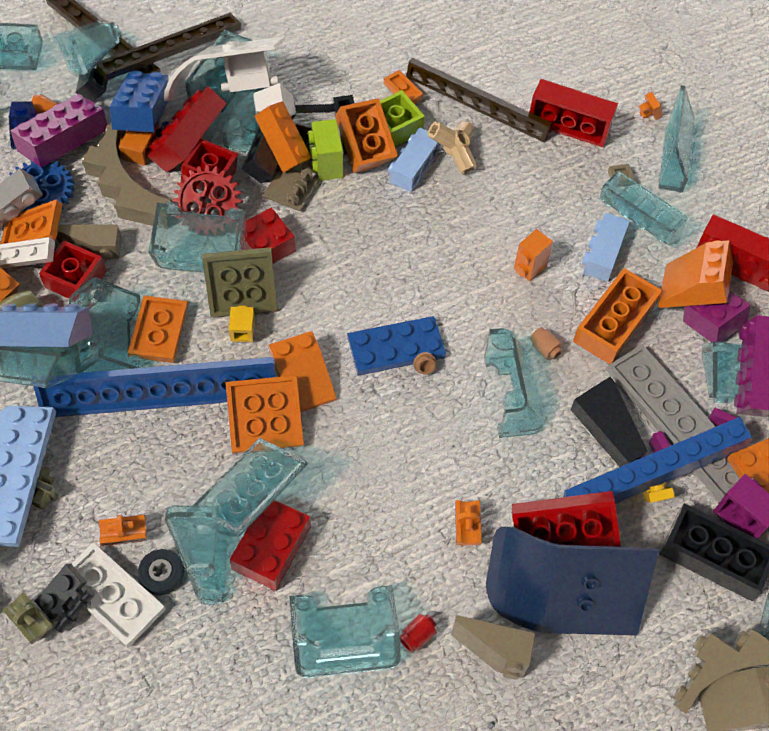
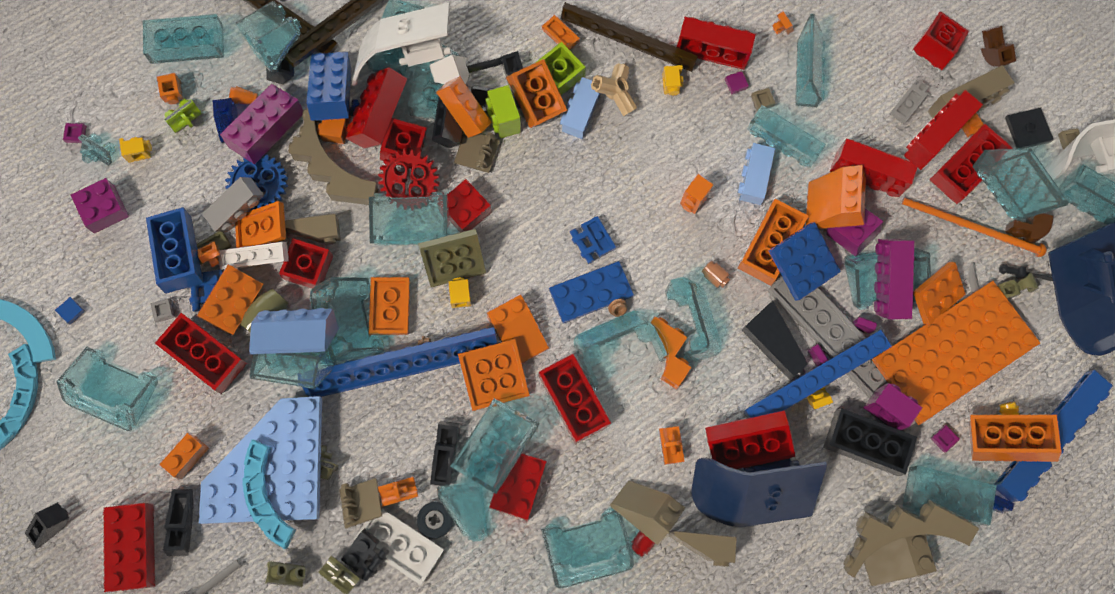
camera: 10 degrees left, 15 degrees up
(73, 536) = (360, 502): none -> dark tan hinge
(192, 483) = (444, 453): none -> black slope
(356, 454) = (574, 399): none -> red brick
(385, 398) = (589, 342): none -> clear light blue windscreen
(413, 288) = (598, 237): none -> blue plate
(428, 593) = (647, 510): none -> dark tan slope
(486, 407) = (672, 339): none -> orange arch
(520, 144) = (672, 79): none -> yellow brick
(593, 157) = (736, 82): none -> magenta tile
(653, 337) = (804, 261): none -> blue plate

